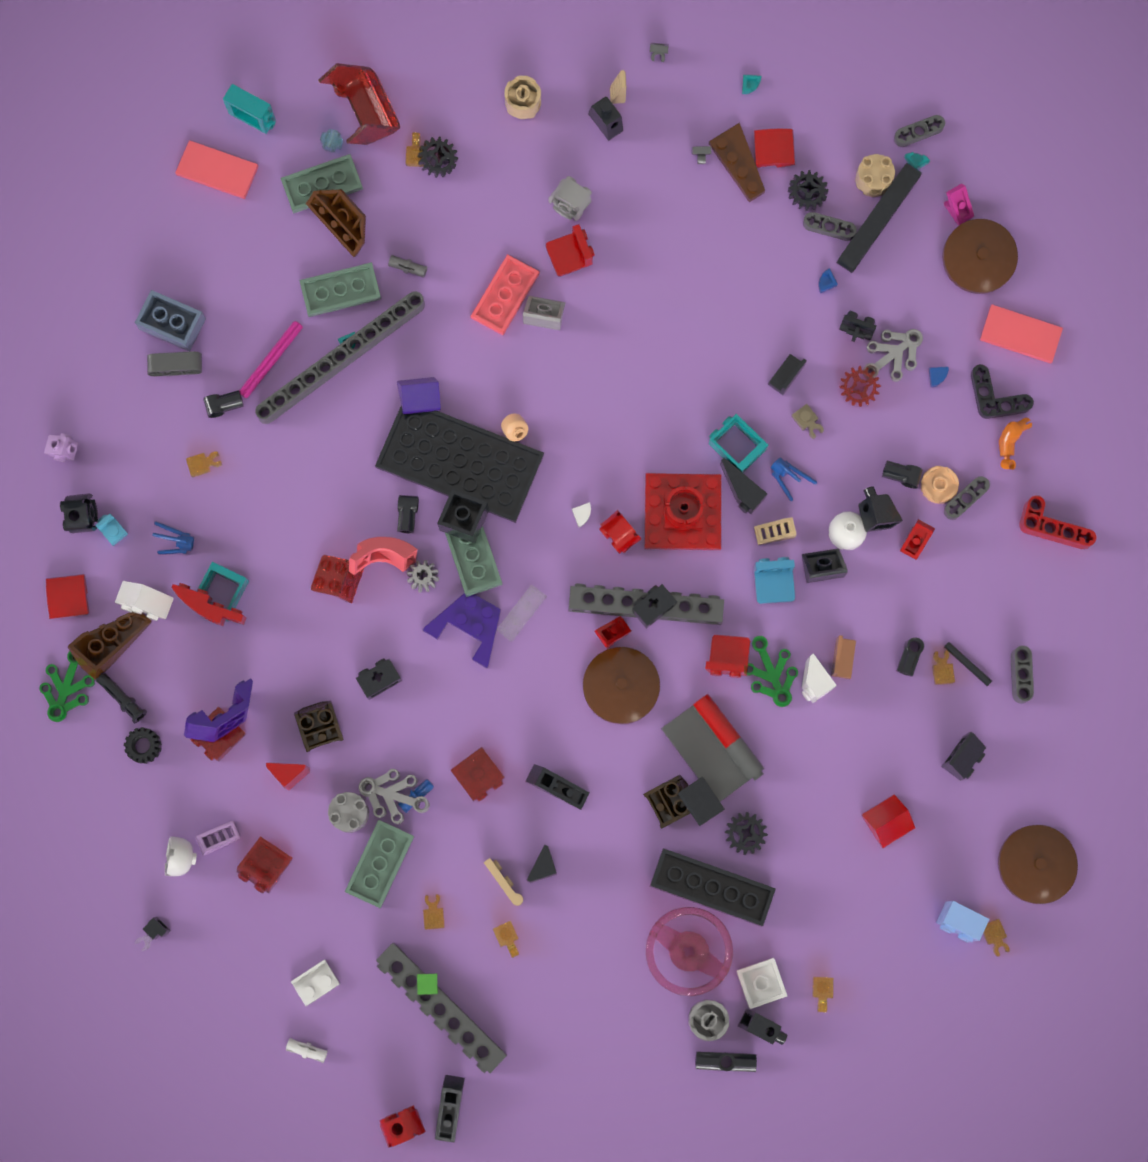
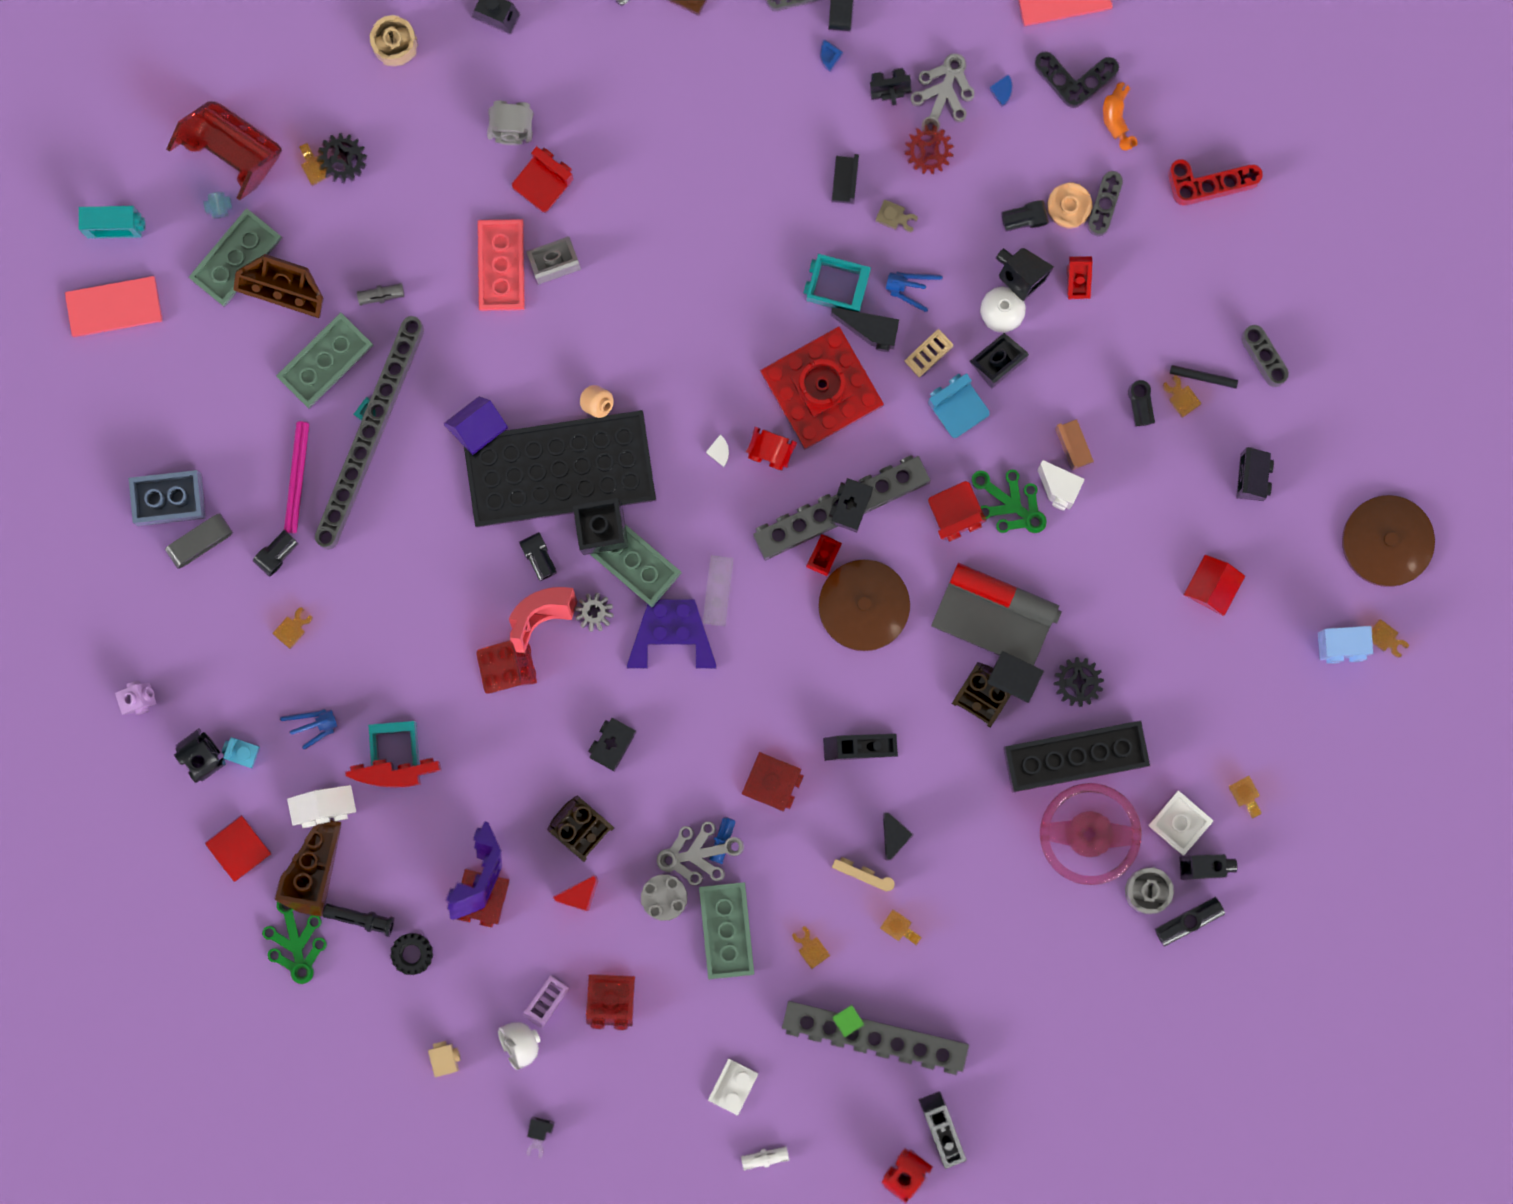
camera: 25 degrees left, 5 degrees up
(118, 835) = (444, 1058): none -> tan brick

